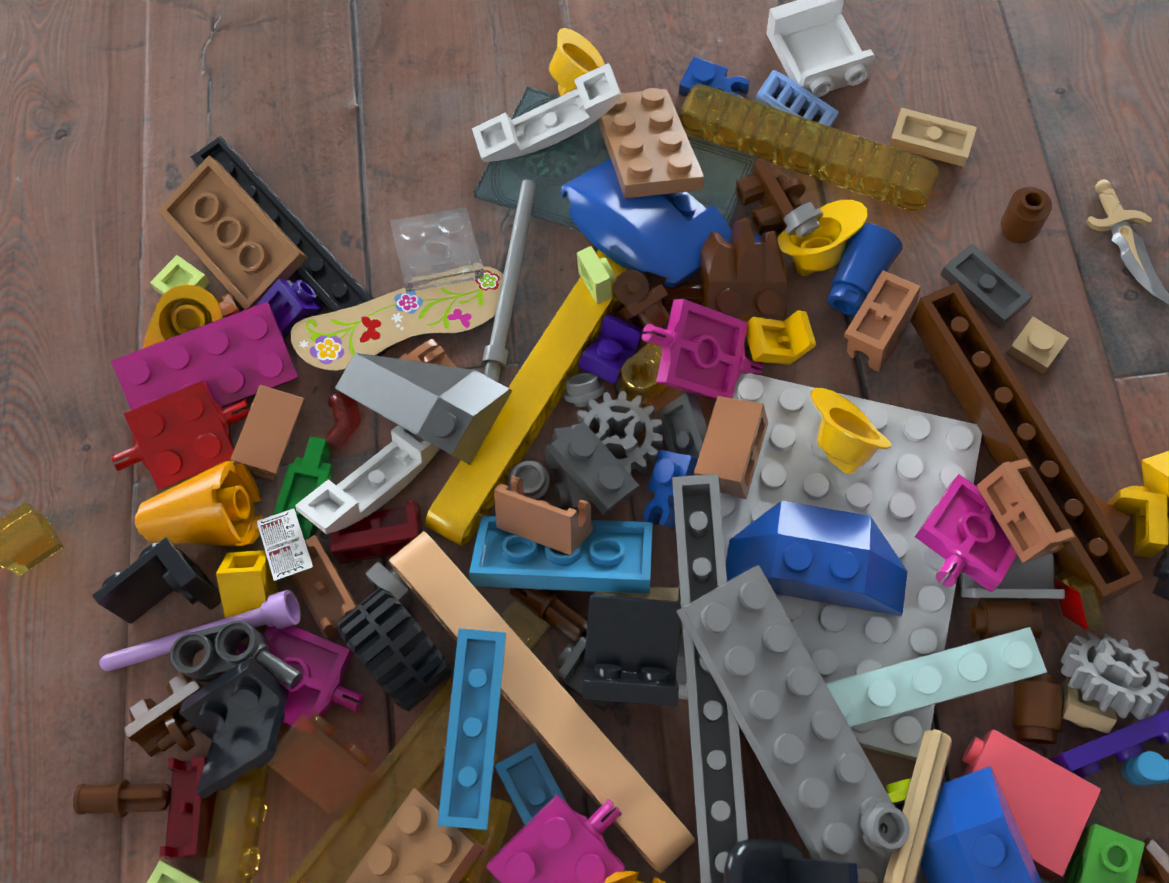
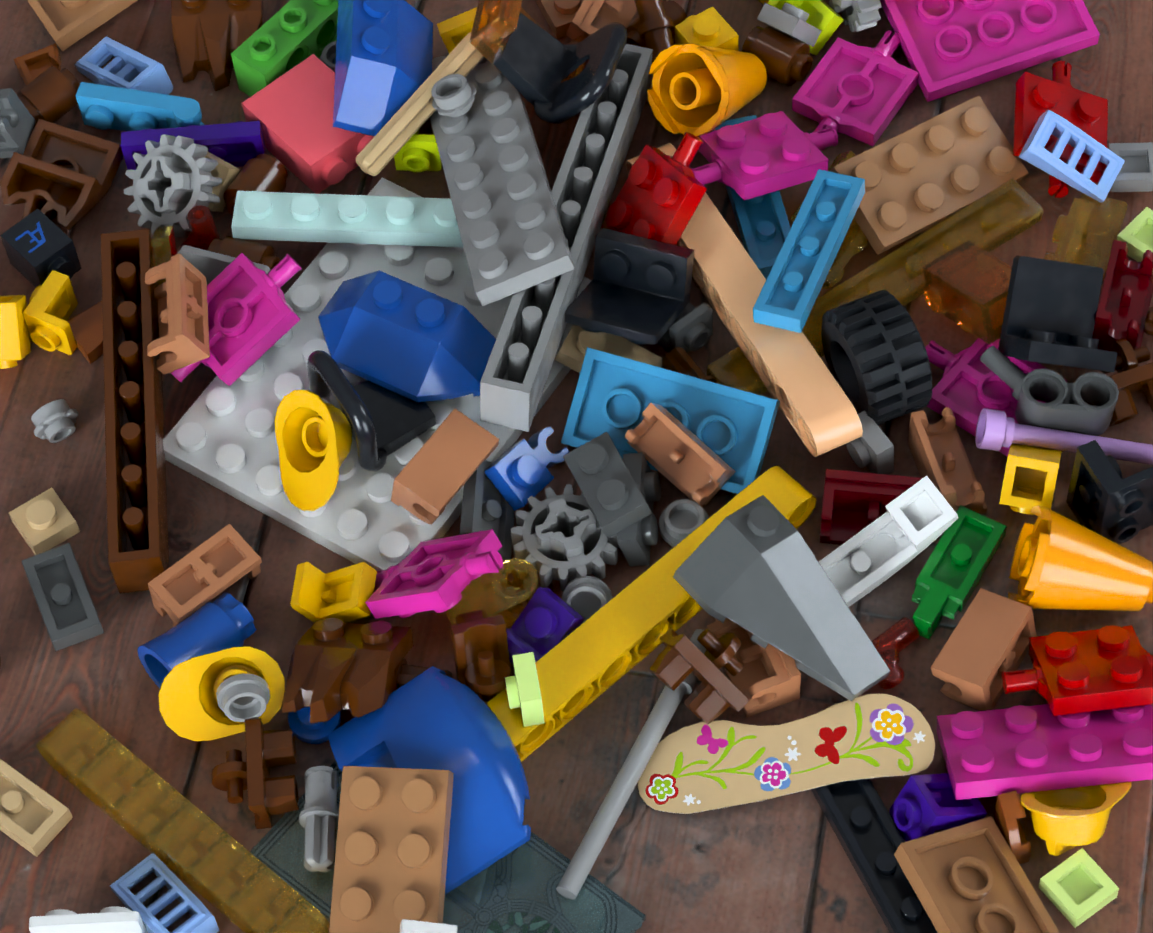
camera: 165 degrees left, 10 degrees down
(284, 544) = (980, 497): white sticker -> none
(436, 249) = (717, 836): clear plate -> none
(476, 341) = (716, 690): none -> reddish brown hips
(640, 763) = (658, 194): none -> red plate
(715, 178) = (320, 817): none -> light grey axle
(807, 479) = (378, 417): none -> black piece
(1058, 629) = (202, 228): none -> clear red arm
(1080, 425) = (55, 421): none -> light grey plate

